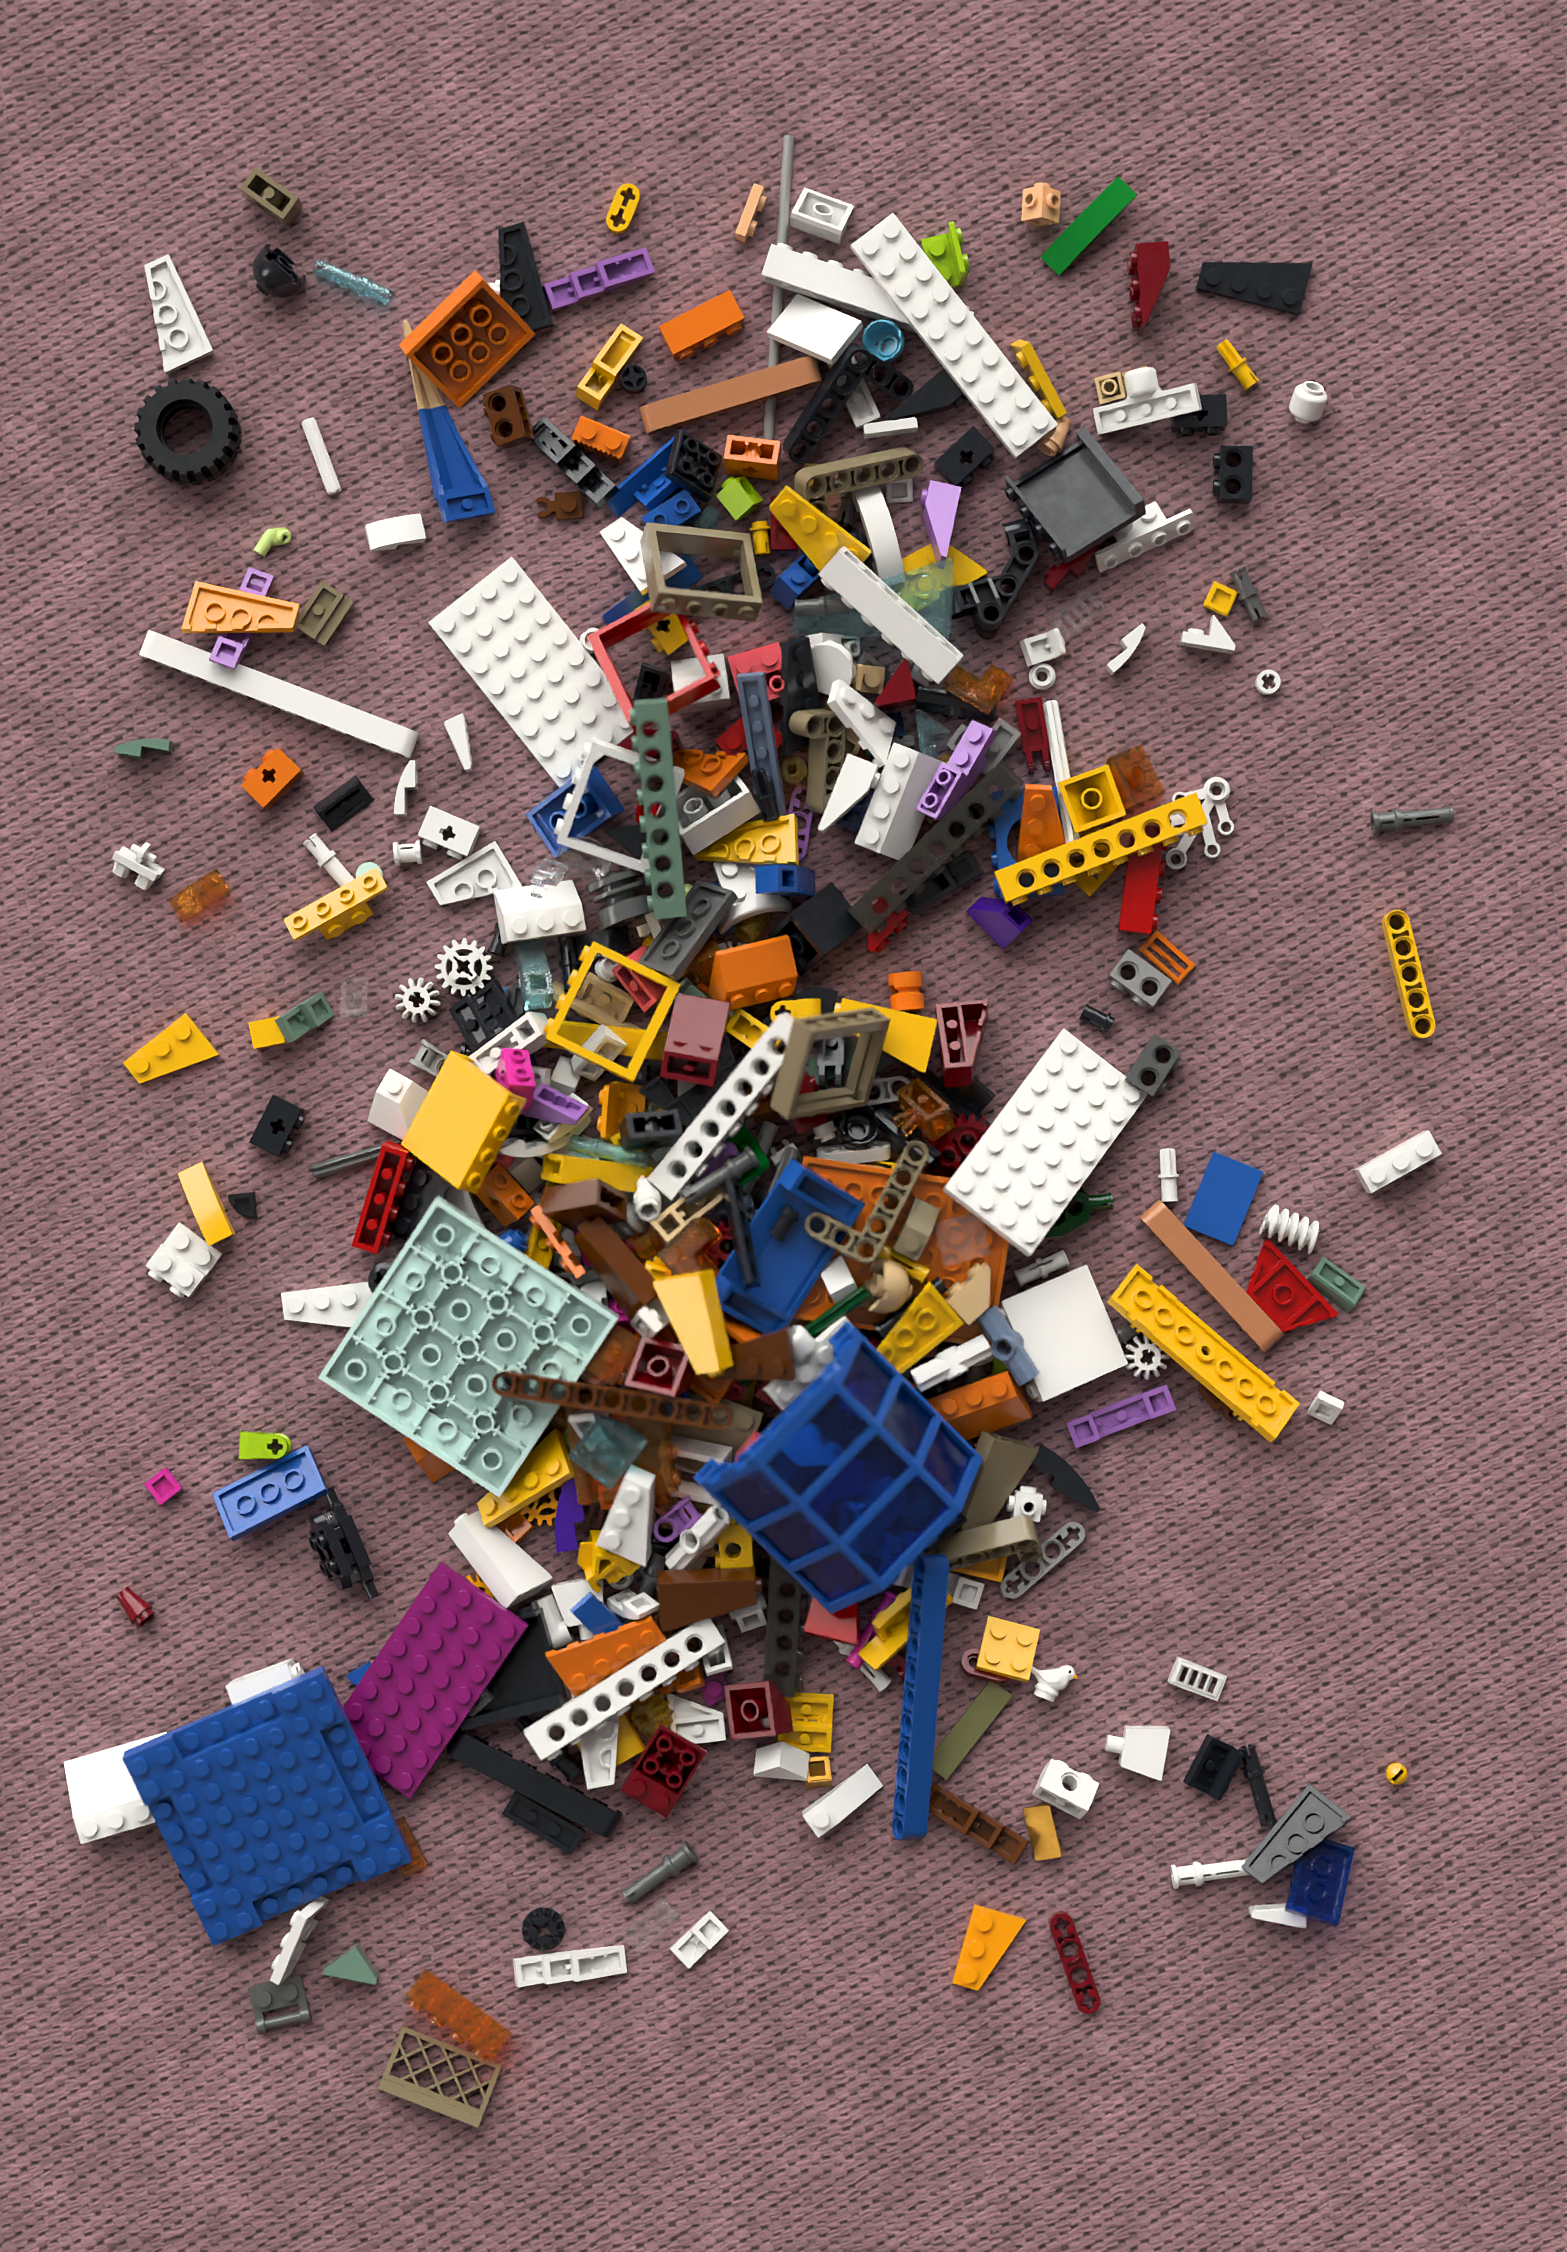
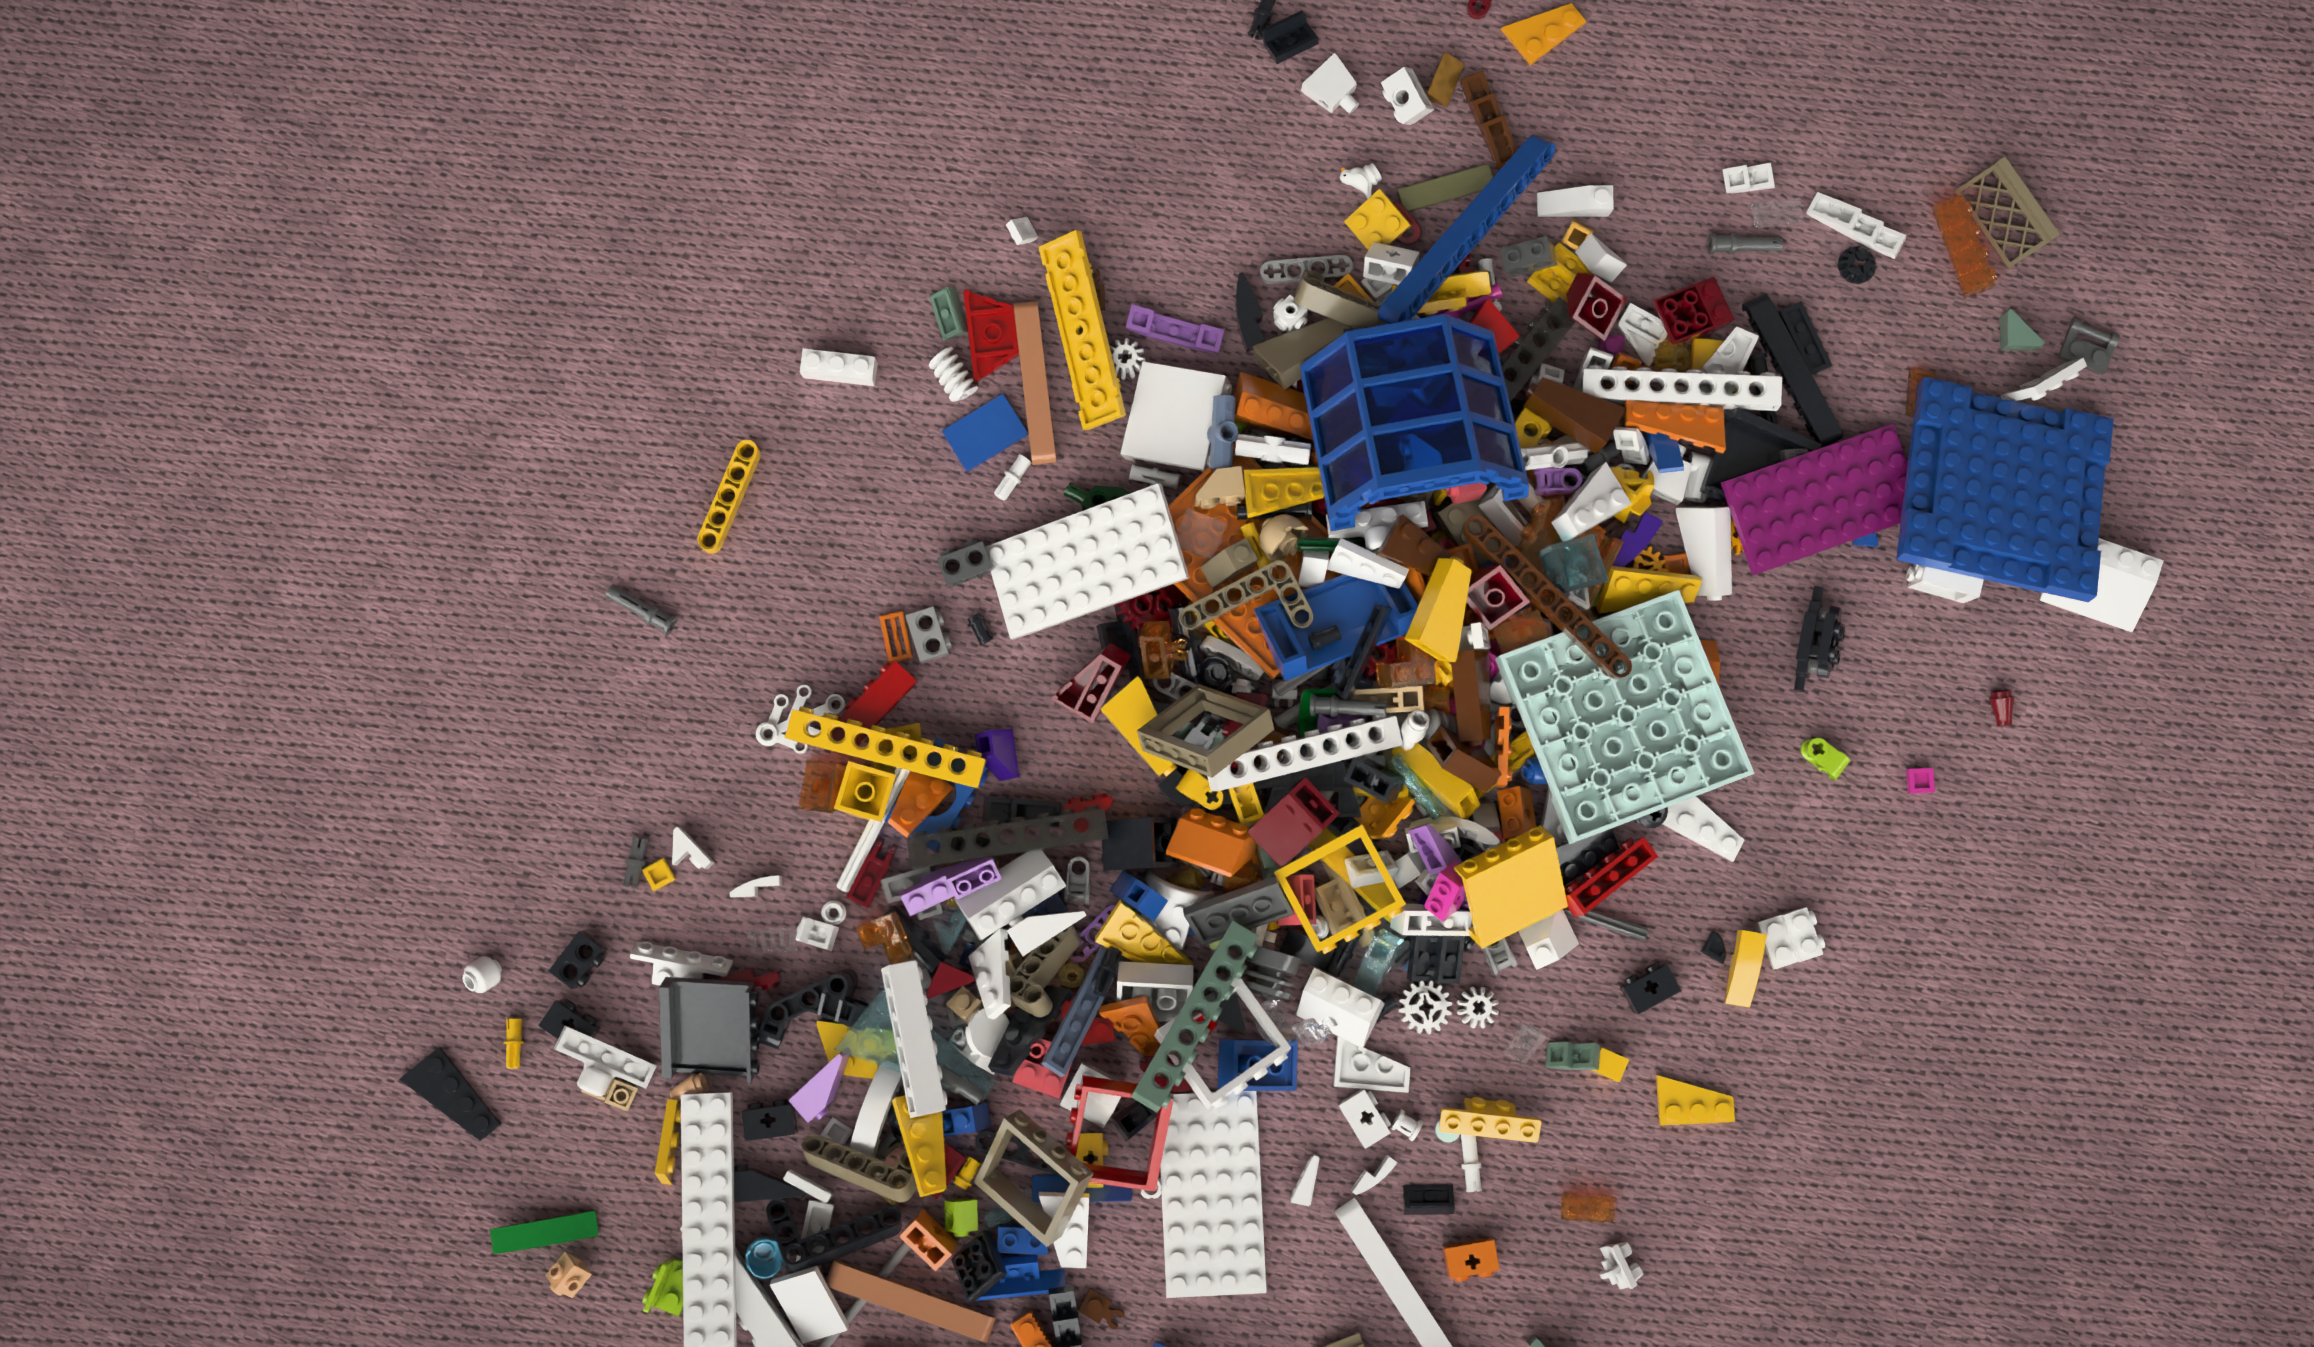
camera: 155 degrees left, 5 degrees down
(270, 1493) = (1844, 717): plate -> none
(794, 1313) = (1366, 565): none -> white wing
(847, 856) = (1077, 883): none -> light grey piece
(848, 1715) = (1528, 256): none -> dark grey brick
(906, 991) = (1107, 749): orange wheel -> none
(970, 1616) = (1389, 263): none -> white brick
(1125, 1333) = (1128, 387): dark grey pin -> none
(1149, 266) = (523, 1163): dark red slope -> none
(1176, 1673) = (1264, 124): white slope -> none
(1259, 682) = (676, 790): white bush -> none

